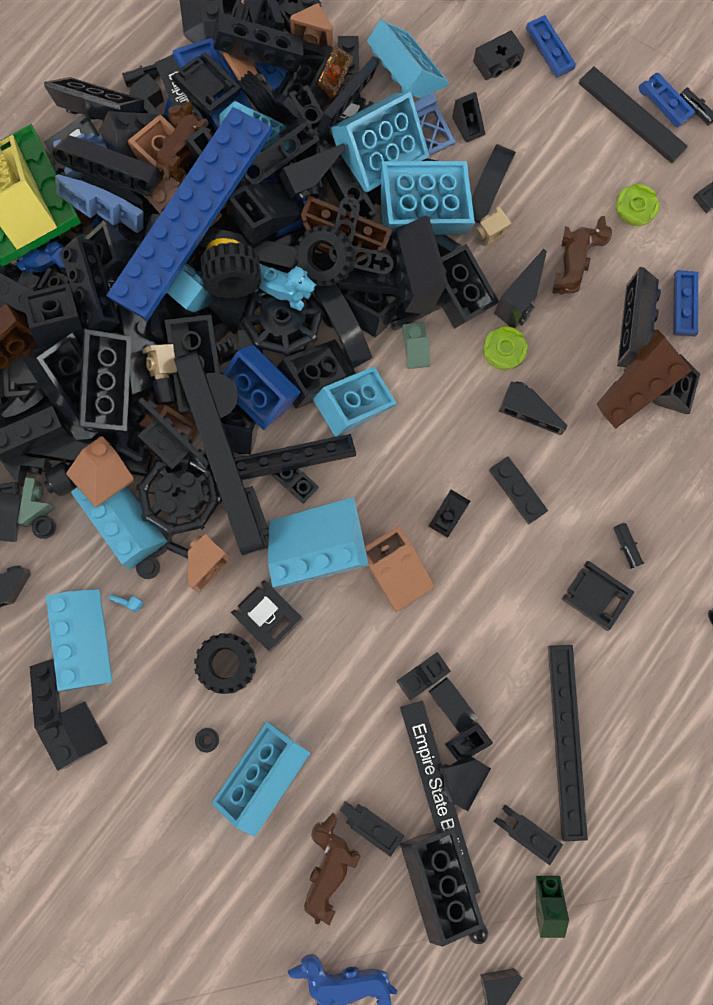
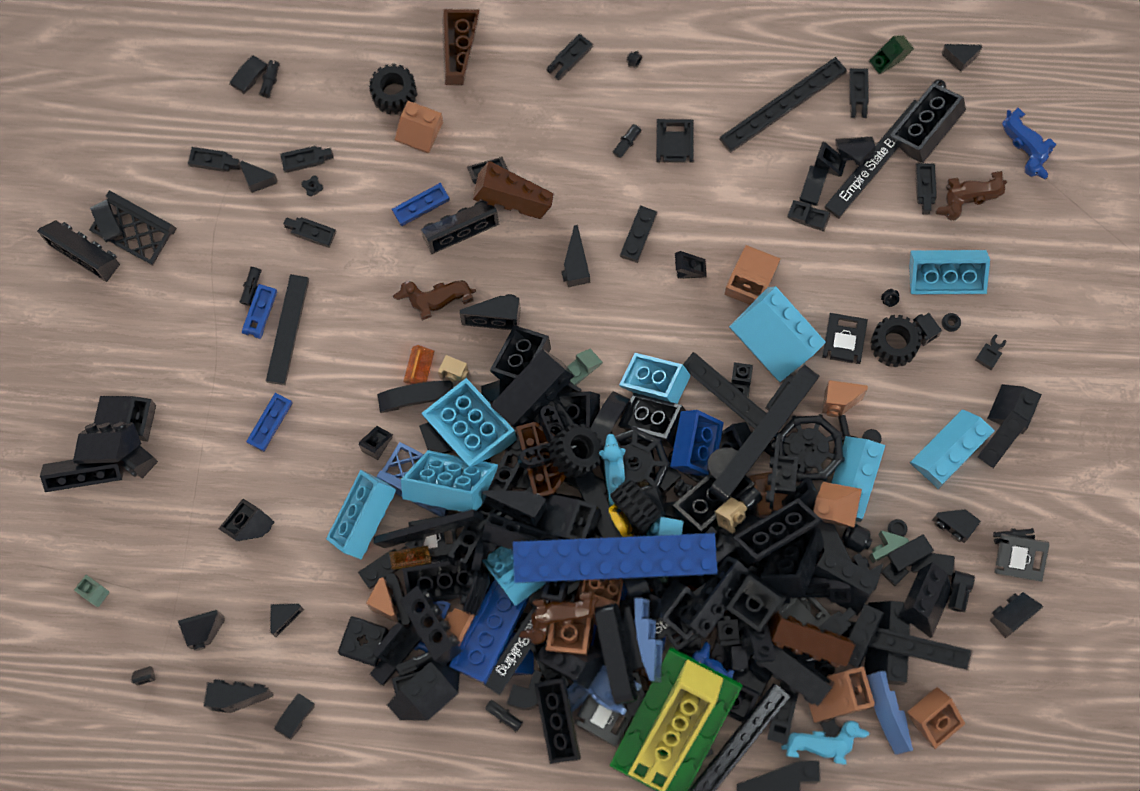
camera: 115 degrees left, 5 degrees down
(133, 604) = (902, 430): medium azure hand -> none
(143, 753) = (989, 354): none -> black plate
(205, 82) = (494, 639): black container -> none
(218, 707) = (929, 328): none -> black brick
(276, 694) = (890, 301): none -> black plate
(498, 55) = (311, 462): black brick -> none
(505, 348) = (540, 305): lime tile -> none
(518, 204) = (418, 365): none -> clear orange slope
(637, 204) = (362, 282): lime tile -> none

